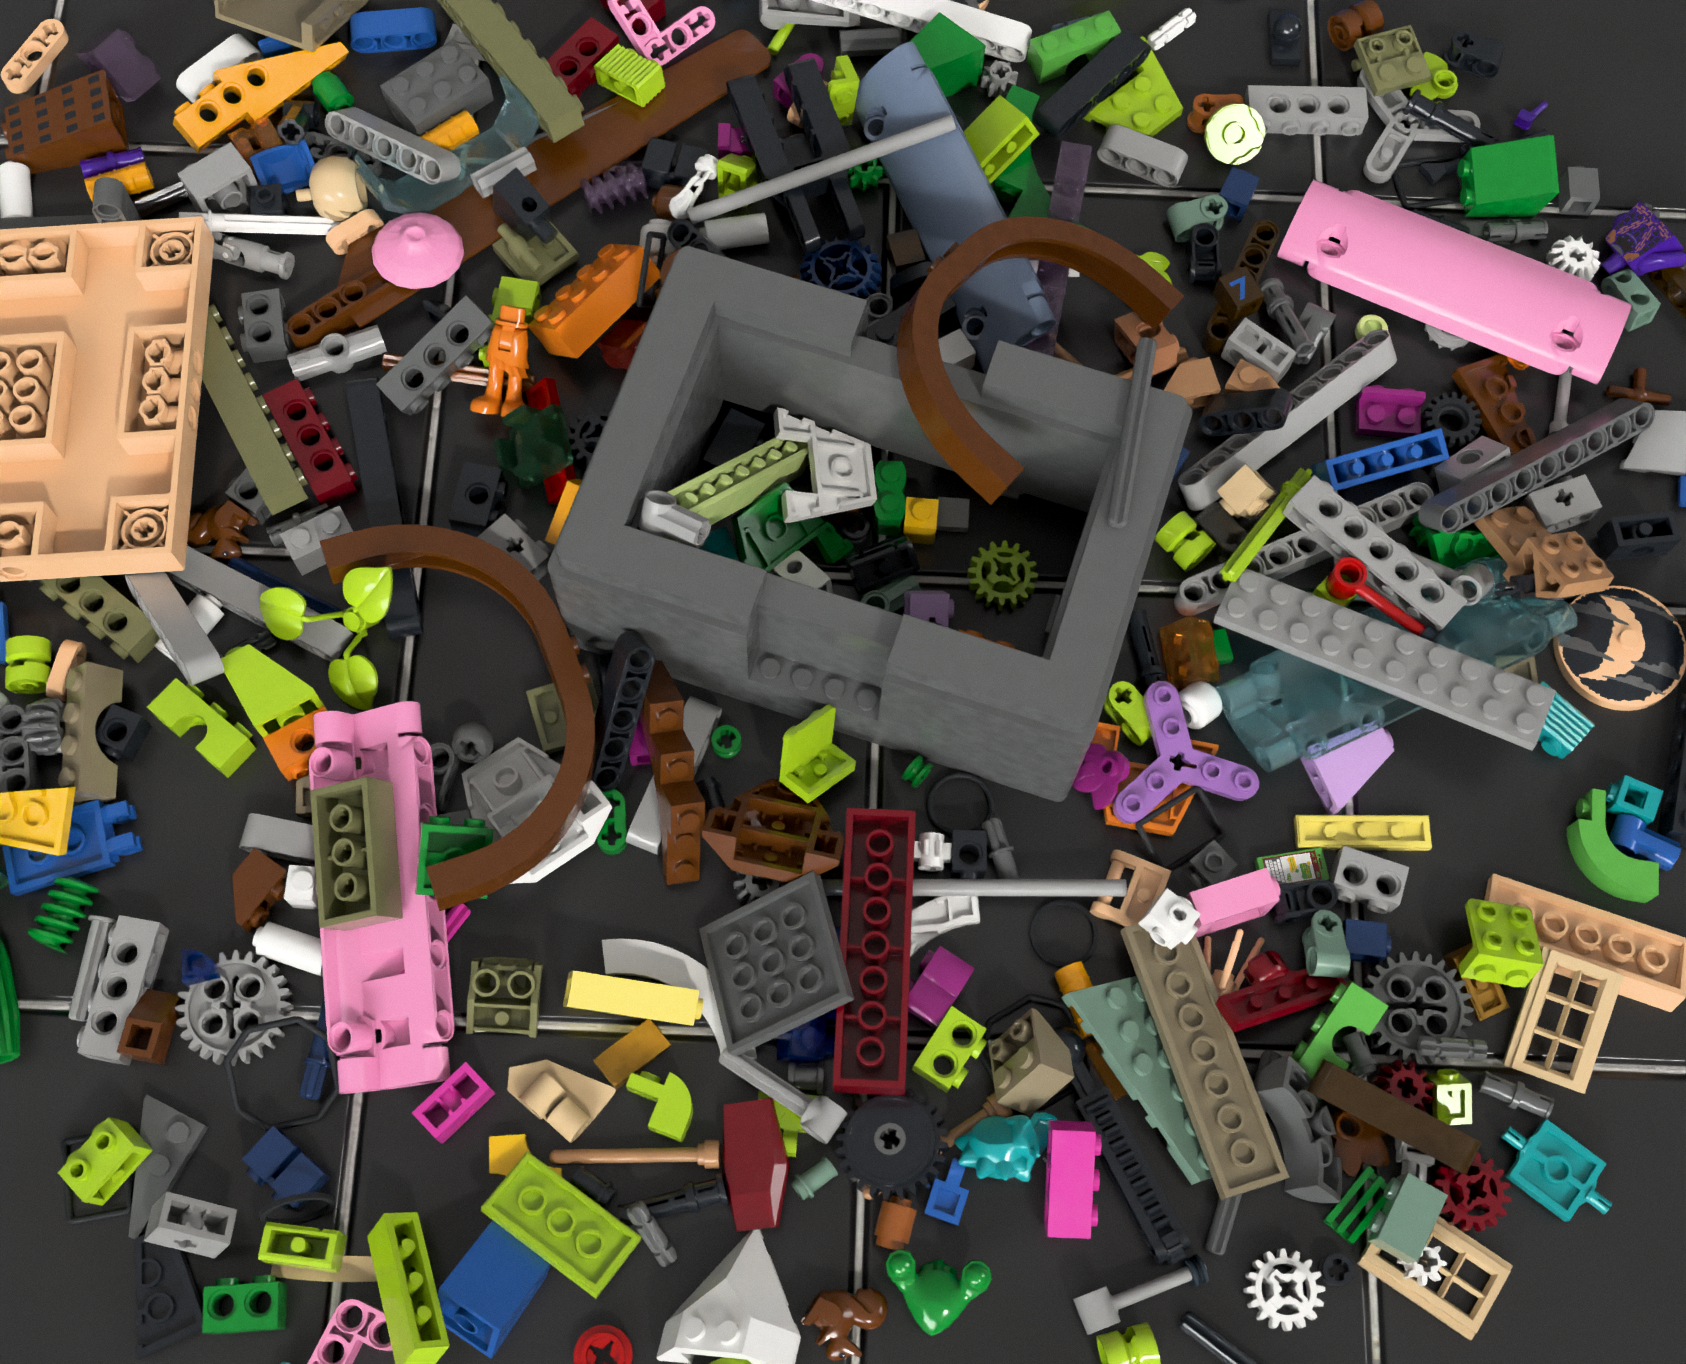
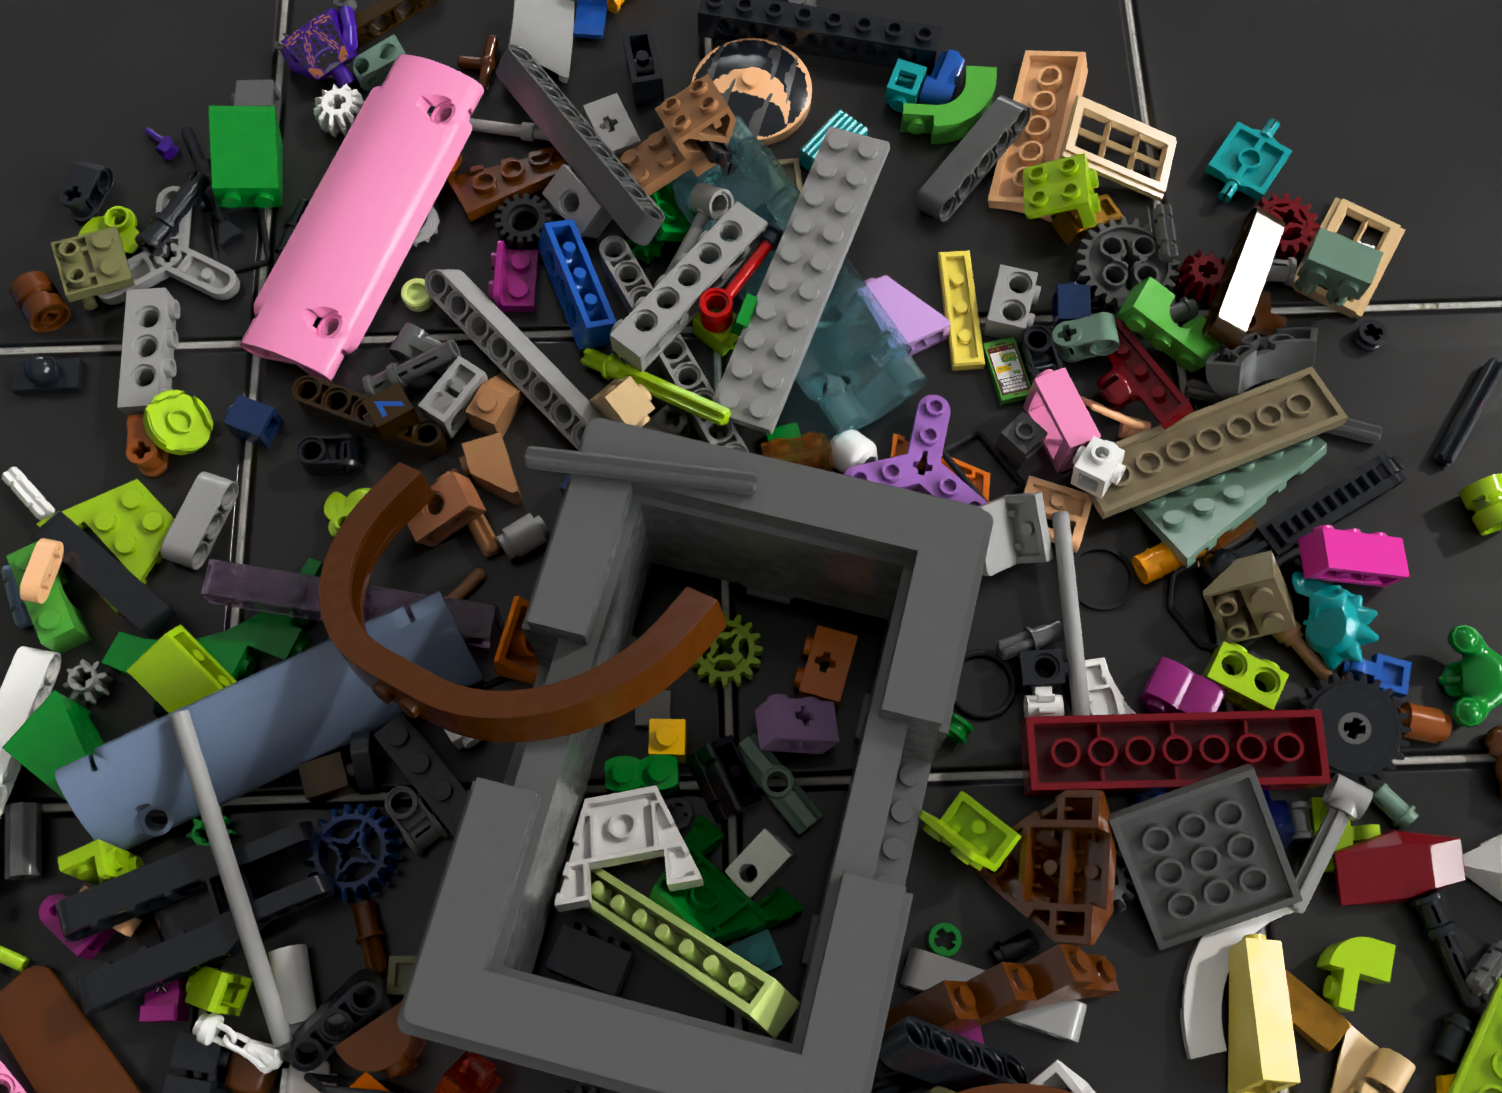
camera: 90 degrees left, 0 degrees up
(619, 822) = (1057, 1052): green beam -> none
(664, 517) = (780, 1008): light grey piece -> none
(705, 1154) = (1394, 919): medium nougat piece -> none
(1090, 31) = (41, 571): none -> light nougat beam
(1101, 1309) = (1456, 531): light grey piece -> none
(1106, 832) = (1017, 532): none -> light grey bracket
(1186, 215) = (282, 464): sand green piece -> none
(1246, 412) = (528, 404): black beam -> none
(1273, 1301) = (1417, 382): white gear -> none
(1340, 1229) = (1312, 312): green tile -> none
(1342, 601) = (744, 314): none -> green tile
(1451, 1097) = (1202, 236): lime bracket -> none
(1515, 231) = (302, 160): dark grey pin -> none
(1516, 1095) = (1189, 188): dark grey pin -> none
(1543, 860) = (972, 158): none -> dark grey beam

